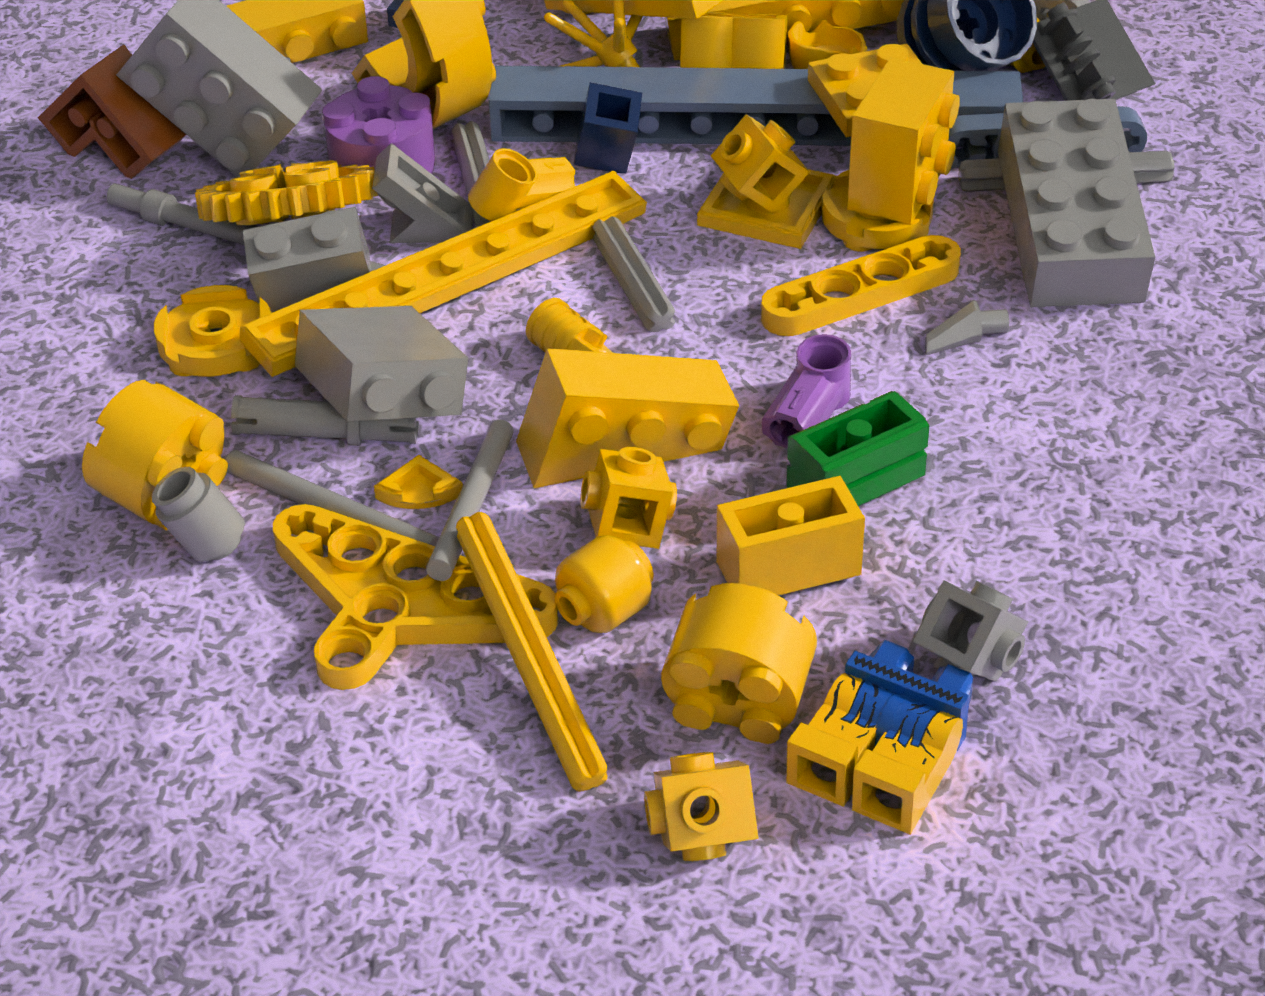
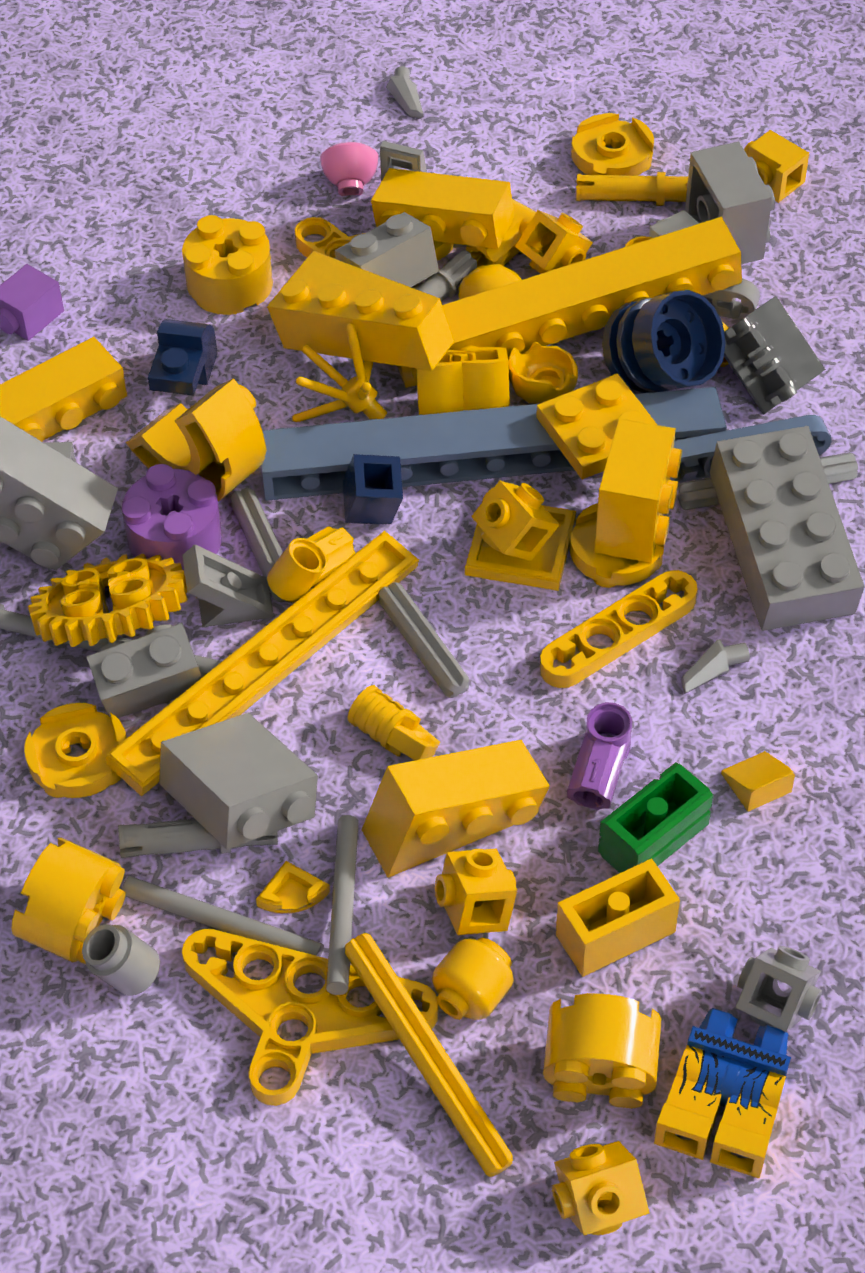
camera: 10 degrees left, 10 degrees up
(997, 442) = (759, 780): none -> yellow slope

